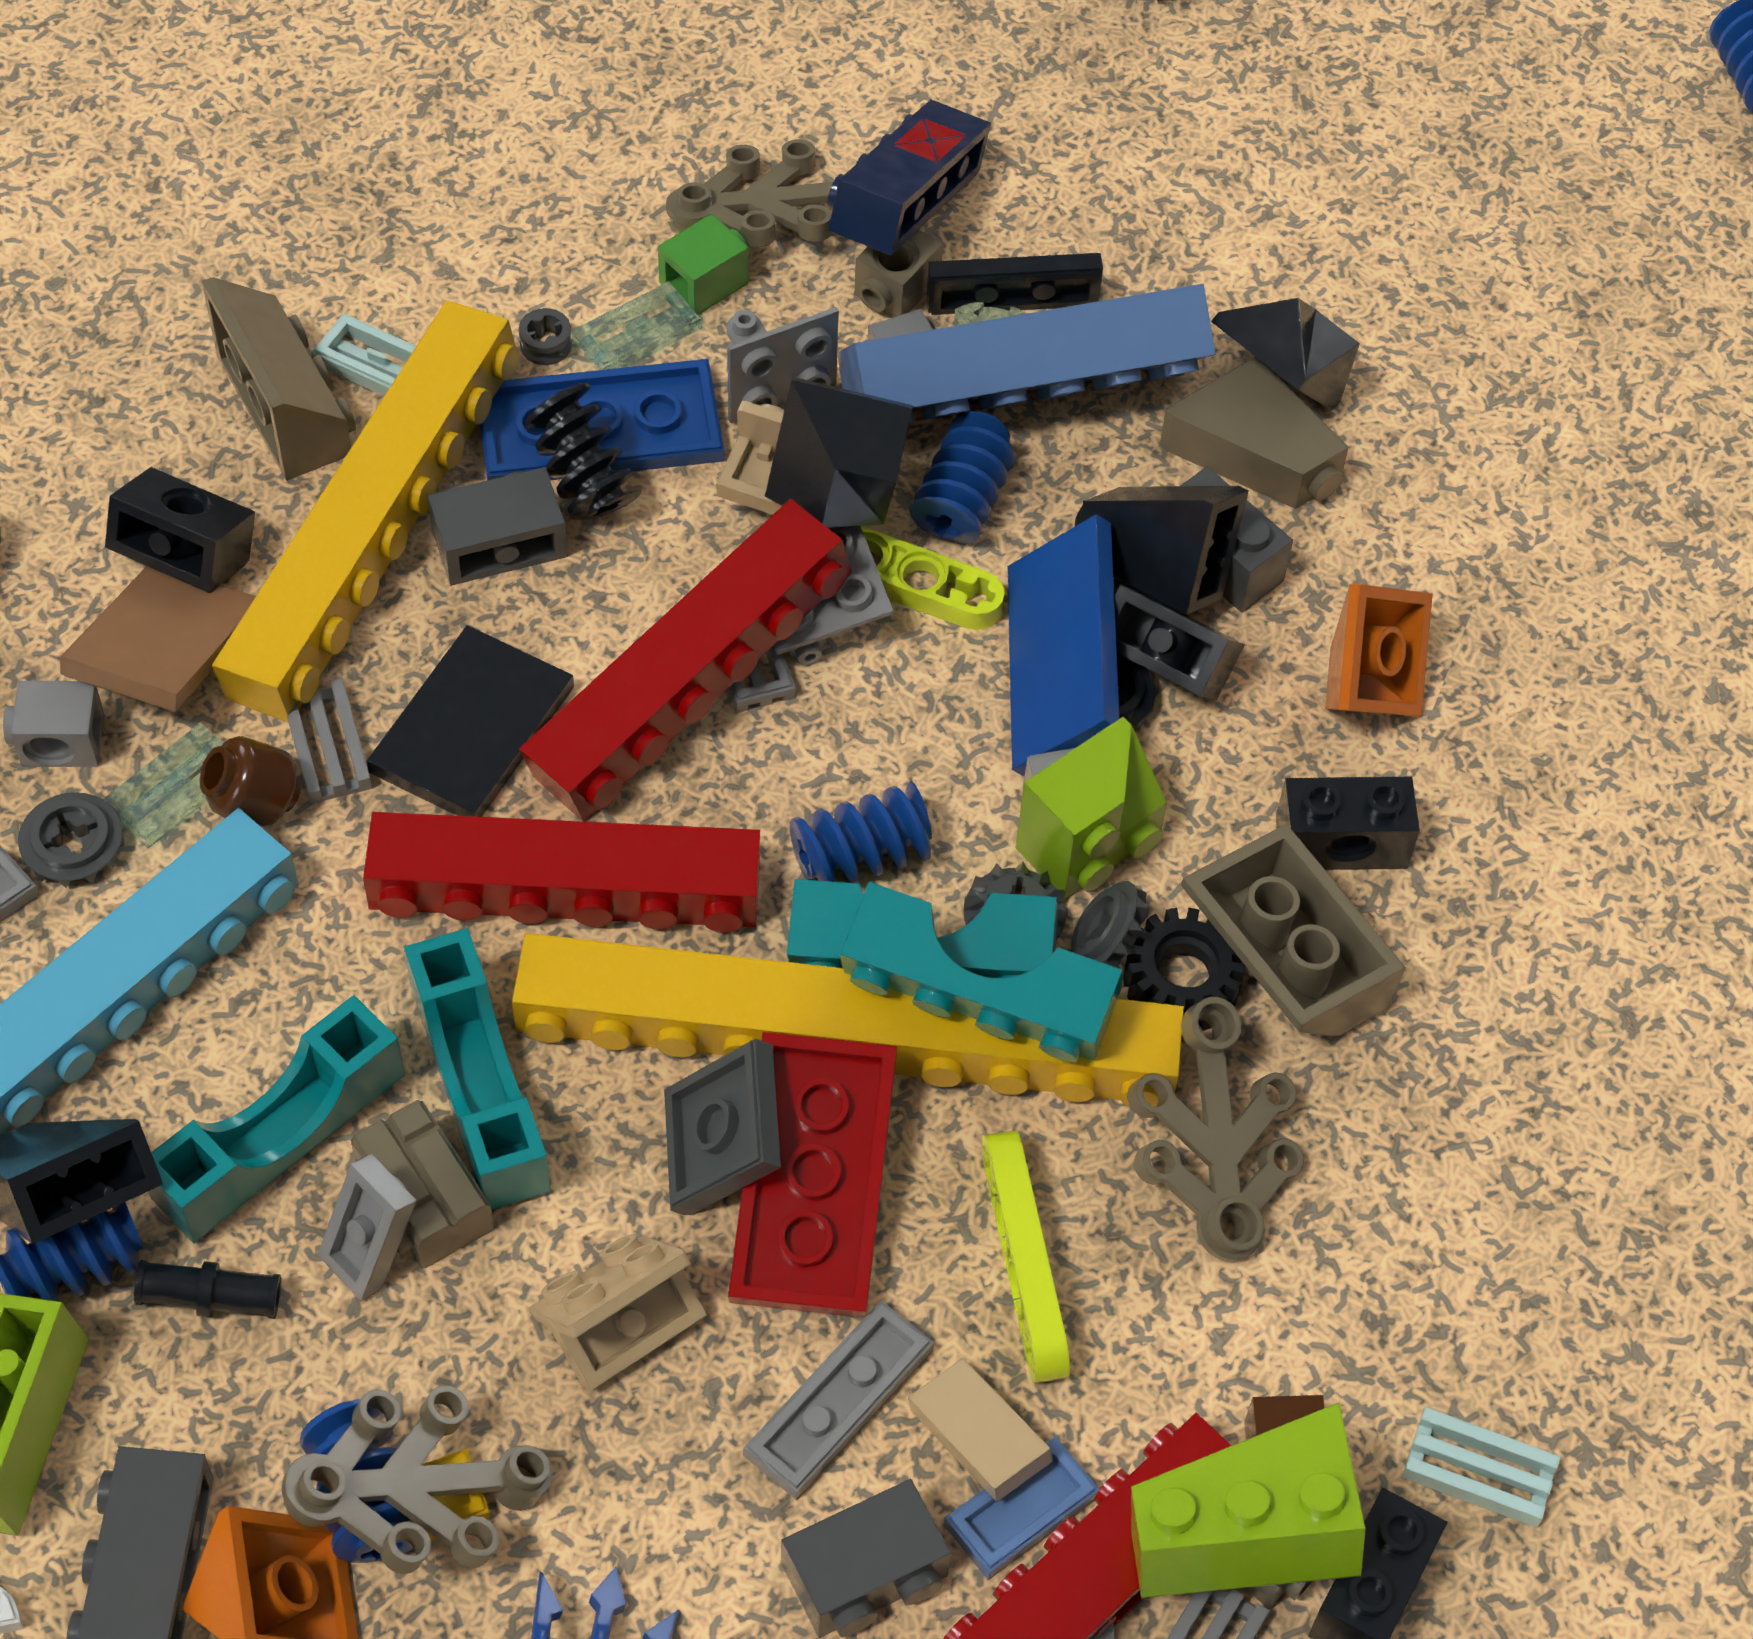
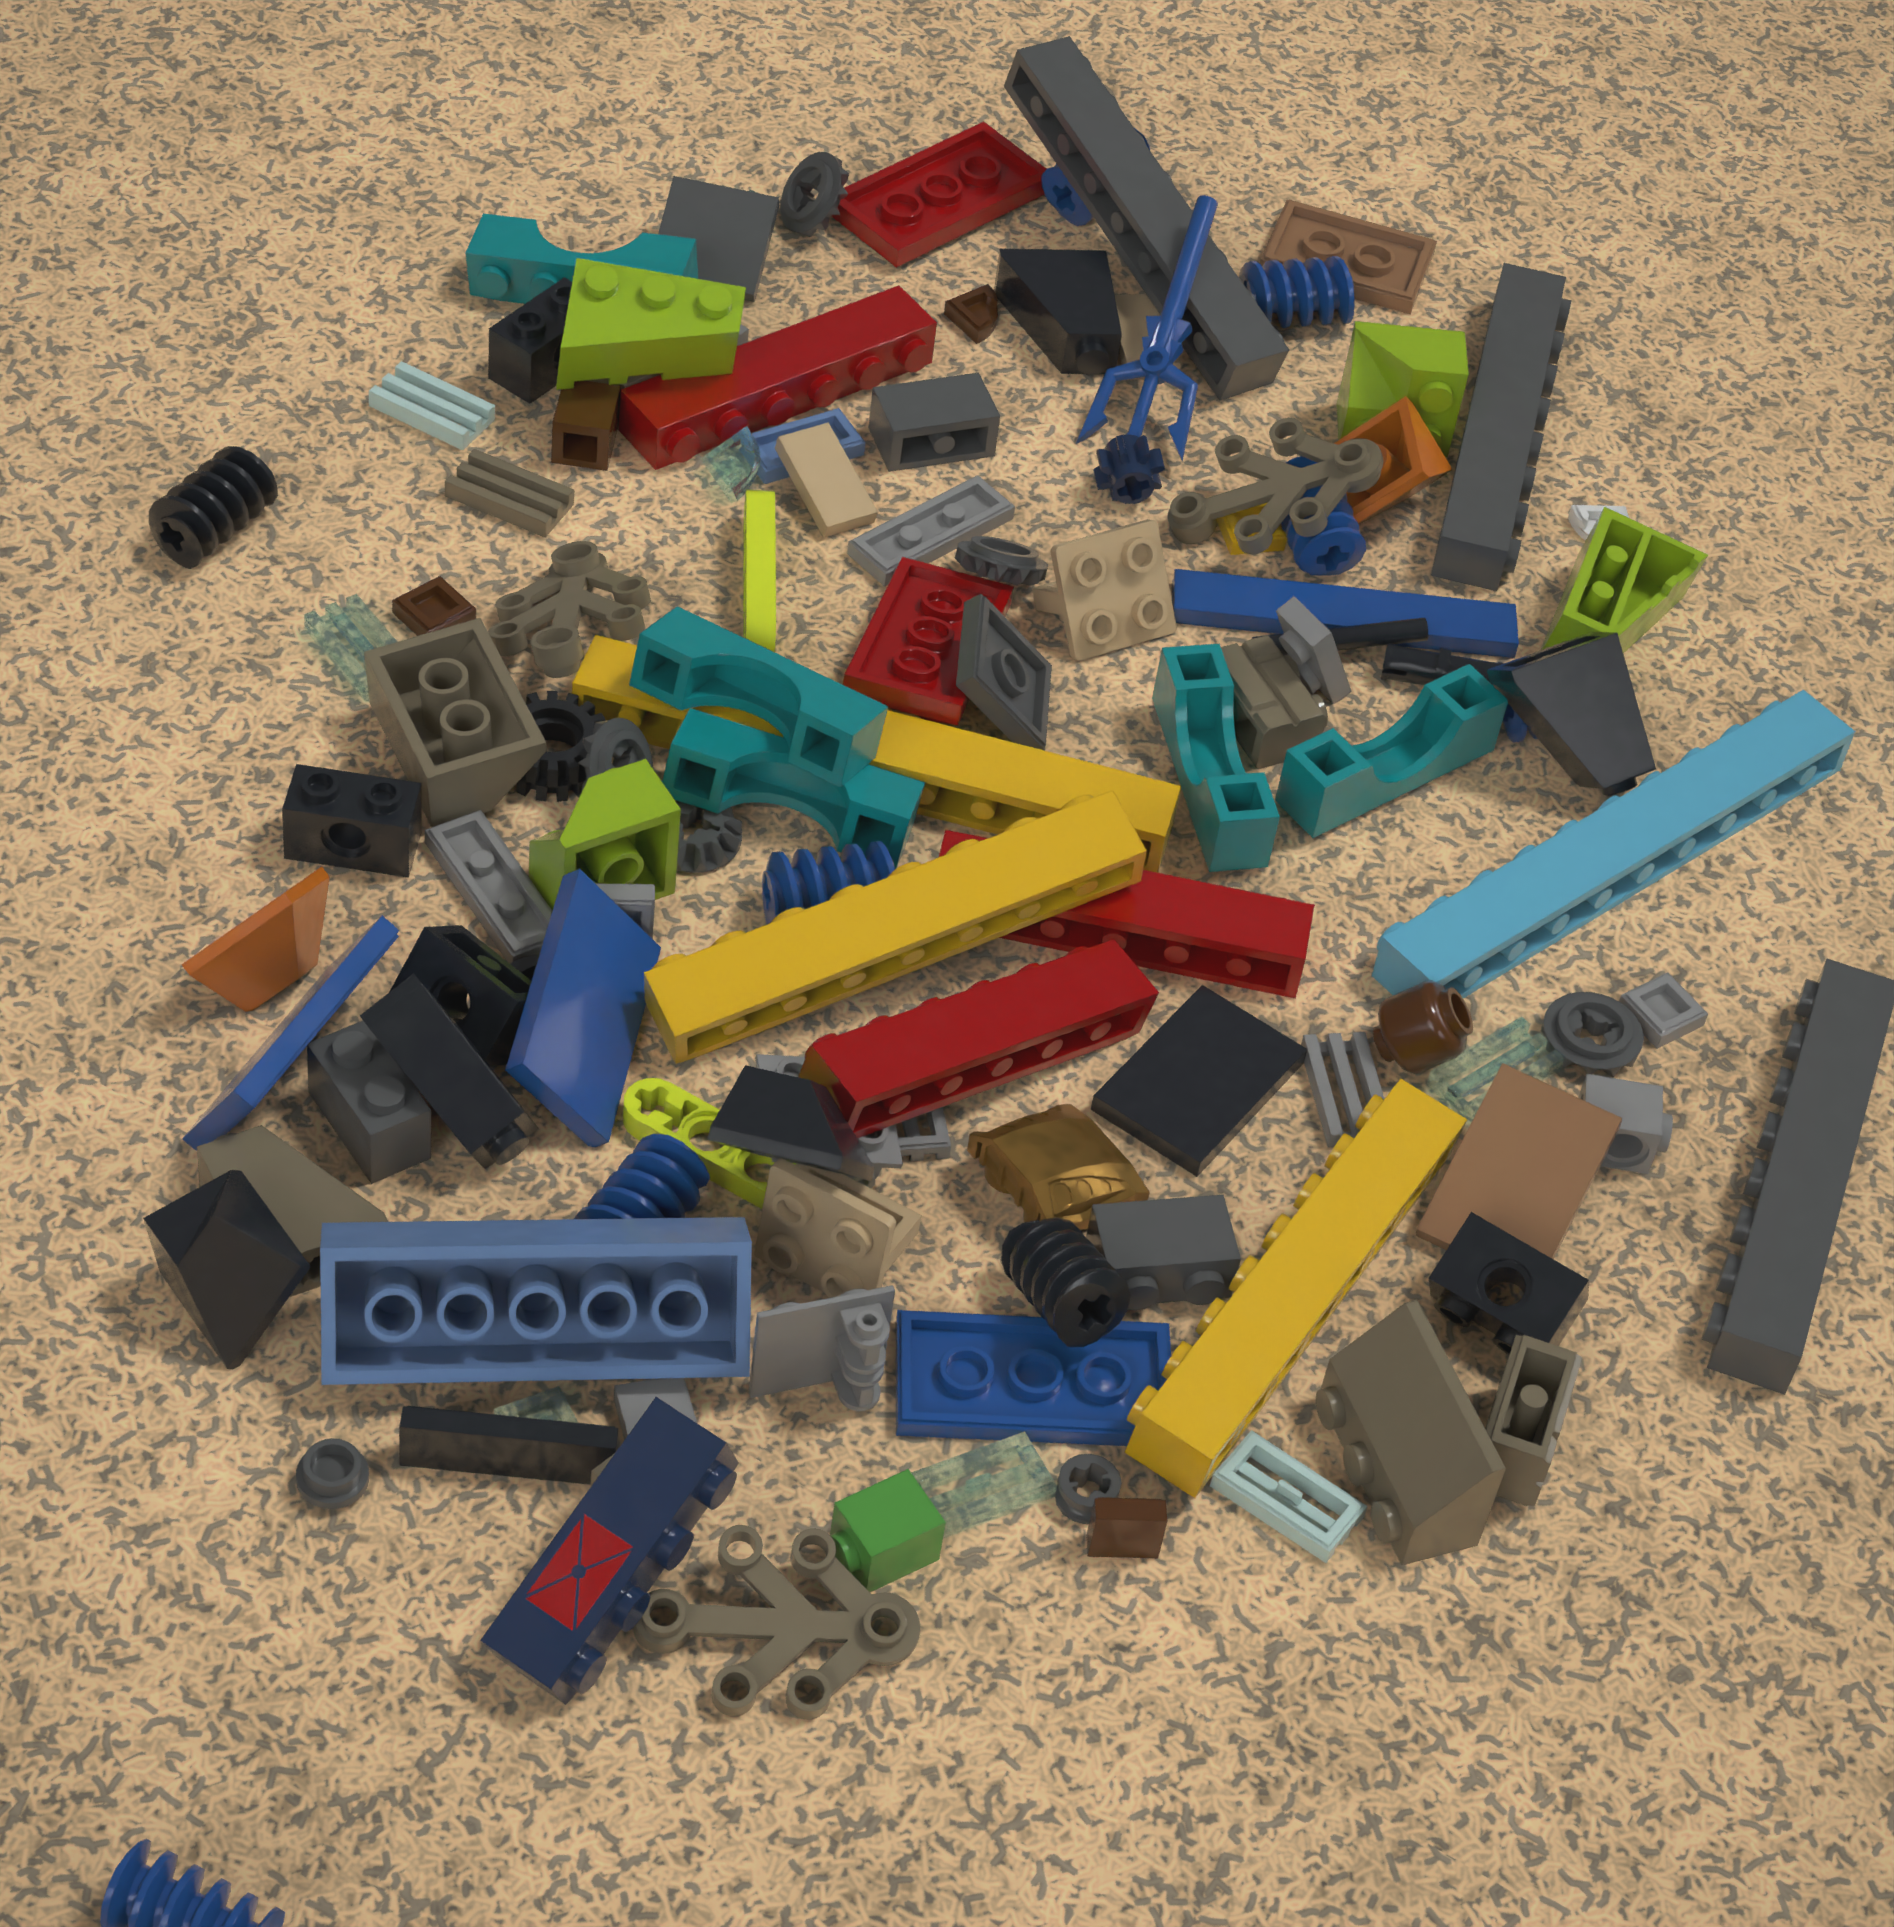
camera: 175 degrees left, 10 degrees down
(173, 408) = (1530, 1414): none -> dark tan brick
(320, 1371) = (1252, 605): none -> blue tile
(331, 1312) = (1373, 634): none -> black bar
(511, 292) = (1126, 1527): none -> reddish brown tile
(602, 593) = (1056, 1165): none -> pearl gold slope
(607, 1524) = (1129, 469): none -> dark blue gear
(740, 1363) = (1001, 560): none -> dark grey gear
(778, 760) = (893, 925): none -> yellow brick
(1096, 1438) = (734, 464): none -> clear light blue tile
(1142, 257) = (332, 1474): none -> dark grey plate
(1194, 810) = (491, 884): none -> light grey tile
(1310, 566) = (293, 1034): none -> blue tile
(1348, 1317) = (511, 488): none -> dark tan tile
(1366, 1146) = (432, 607): none -> reddish brown tile
(1400, 1025) = (320, 631): none -> clear light blue tile
(1654, 1206) = (211, 505): none -> black piece

